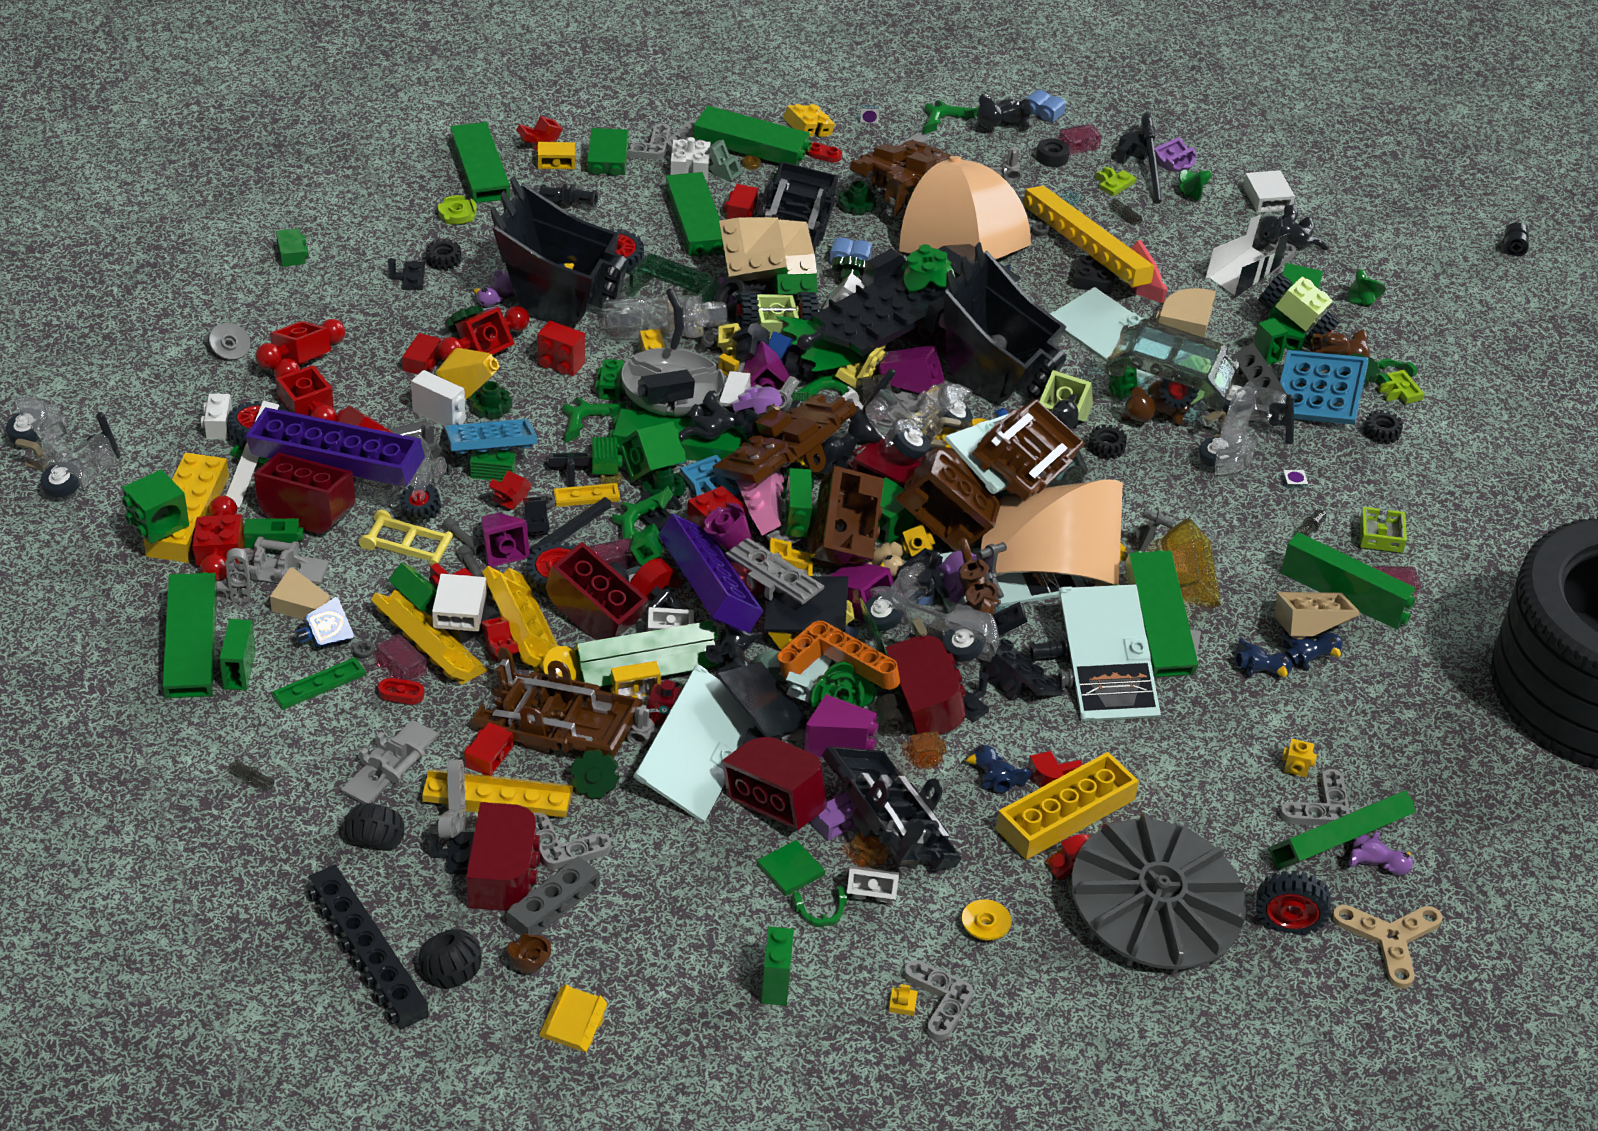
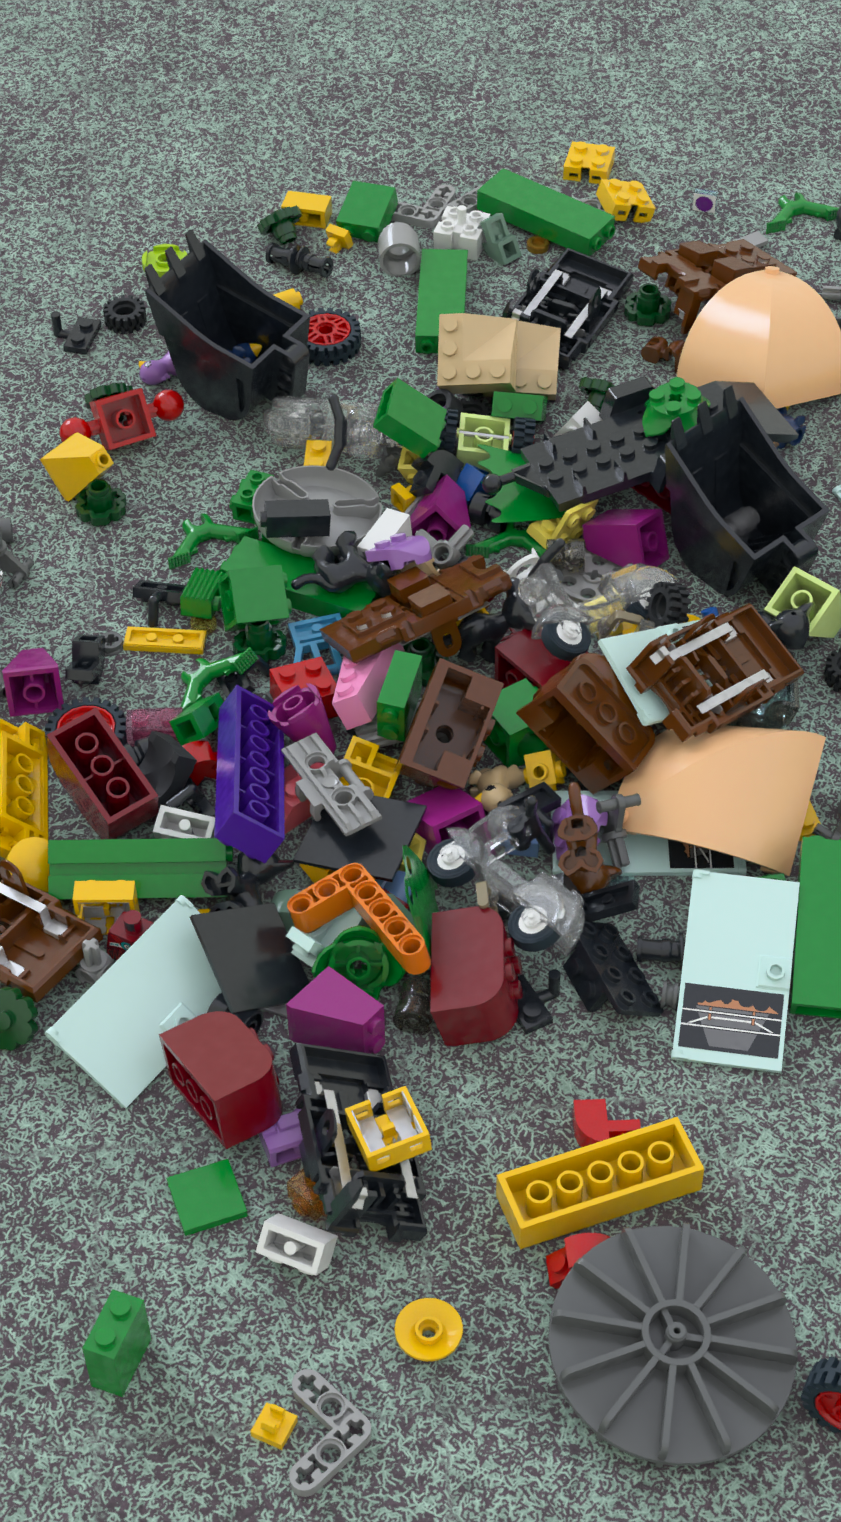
camera: 20 degrees right, 5 degrees up
(421, 354) = (42, 433): red brick -> none
(438, 399) = (34, 494): white brick -> none
(479, 162) = (215, 203): green brick -> none
(490, 435) = (72, 548): dark azure piece -> none
(492, 464) = (66, 585): green brick -> none
(510, 490) = (73, 620): red brick -> none
(543, 169) = (281, 224): none -> dark green plant
(544, 131) = (304, 178): red brick -> none
(561, 348) = (205, 449): red brick -> none
(575, 524) = (133, 676): black axle -> none
(592, 174) = (338, 238): none -> yellow tile
(642, 576) = (166, 766): none -> black brick
(647, 178) = (396, 259): none -> light grey piece
(674, 274) = (360, 360): clear green windscreen -> none
(728, 301) = (410, 418): none -> green brick
(741, 202) = (500, 290): red brick -> none
(767, 89) = (591, 156): none -> yellow piece
(816, 922) = (220, 1284): green piece -> none
(824, 152) = (632, 243): red plate -> none
(847, 247) = (612, 369): medium blue brick -> none
(877, 230) = (658, 348): none -> reddish brown leg
(923, 793) = (392, 1136): none -> yellow piece
(927, 749) = (446, 1063): clear orange brick -> none
(967, 404) = (668, 604): none -> black tyre
(998, 773) = (526, 1117): dark blue animal -> none

